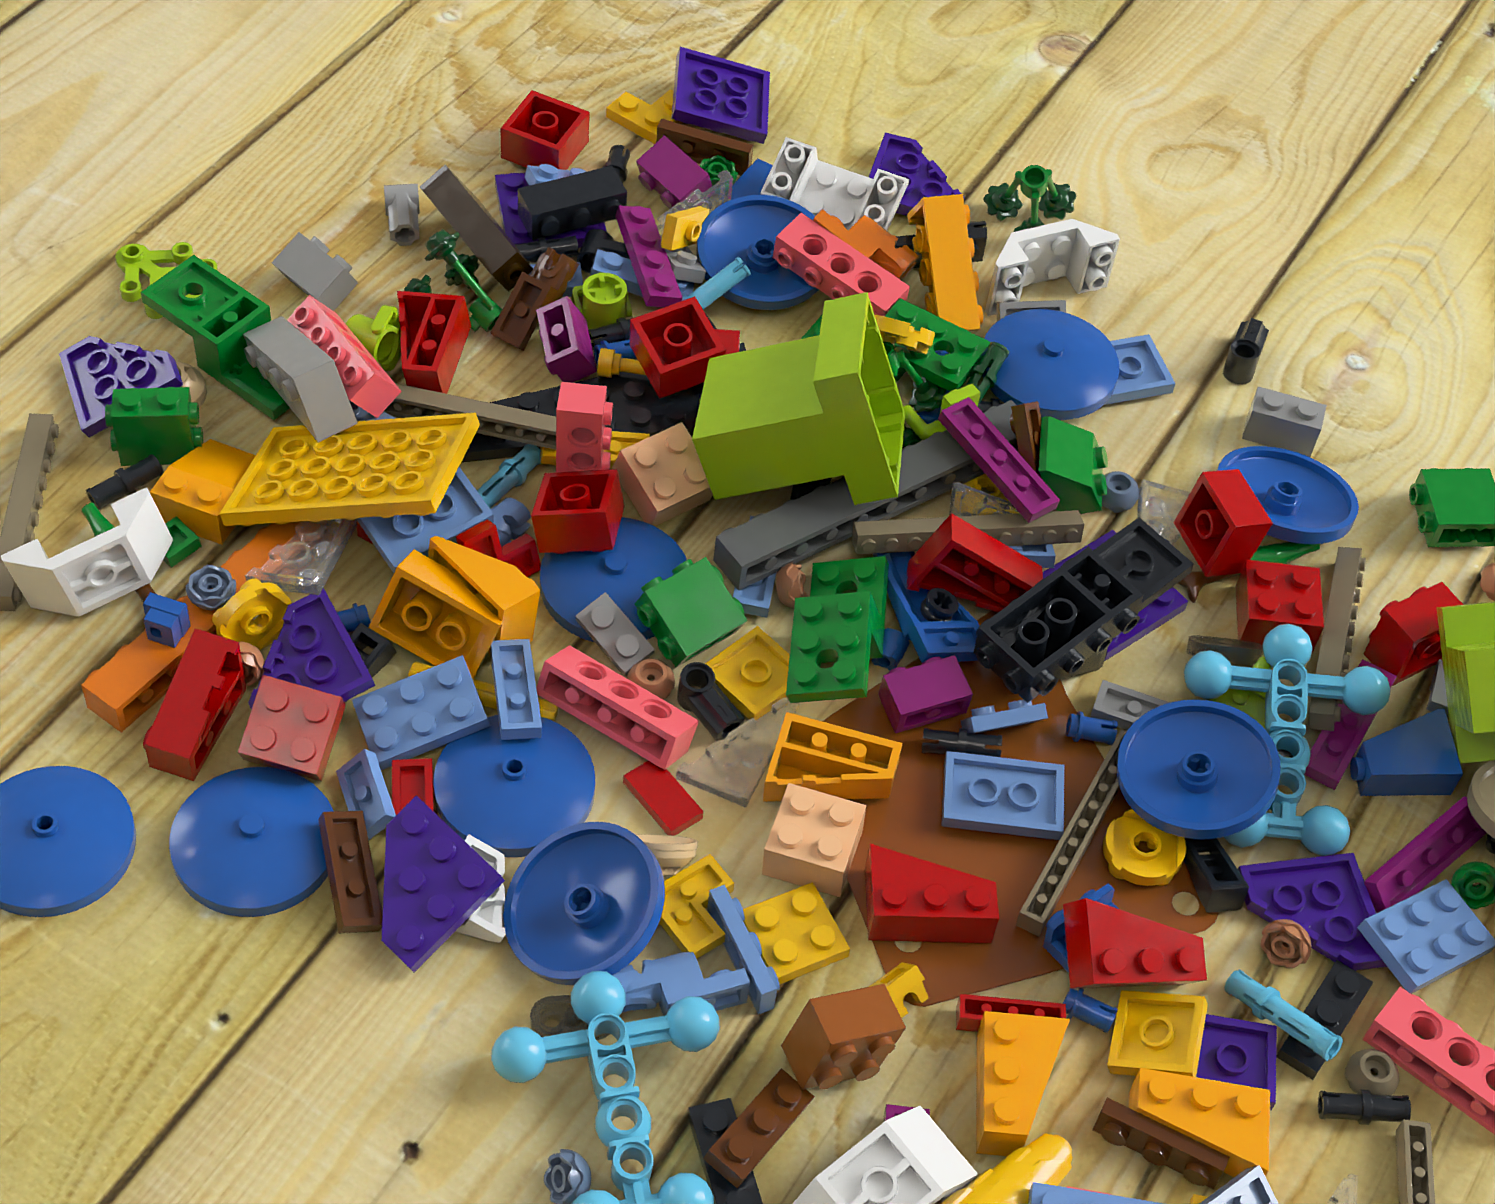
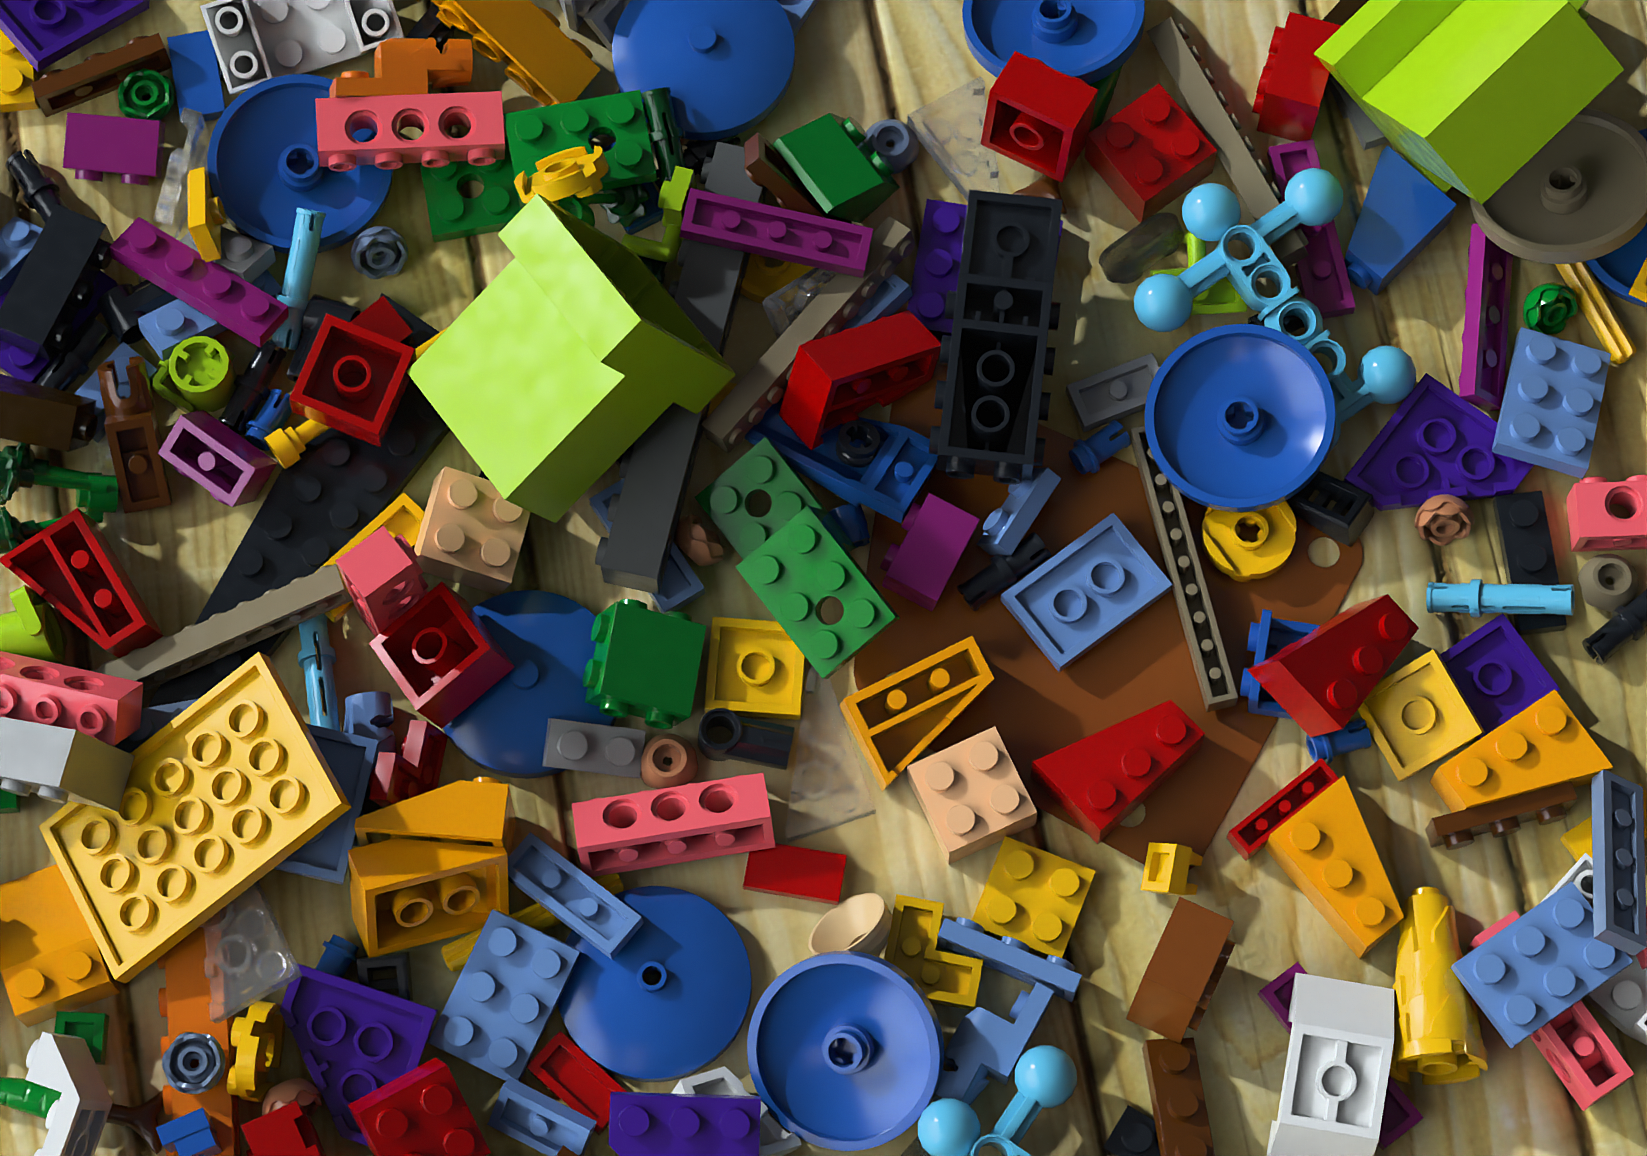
camera: 35 degrees left, 20 degrees up
(755, 329) = (379, 252): none -> sand blue plate

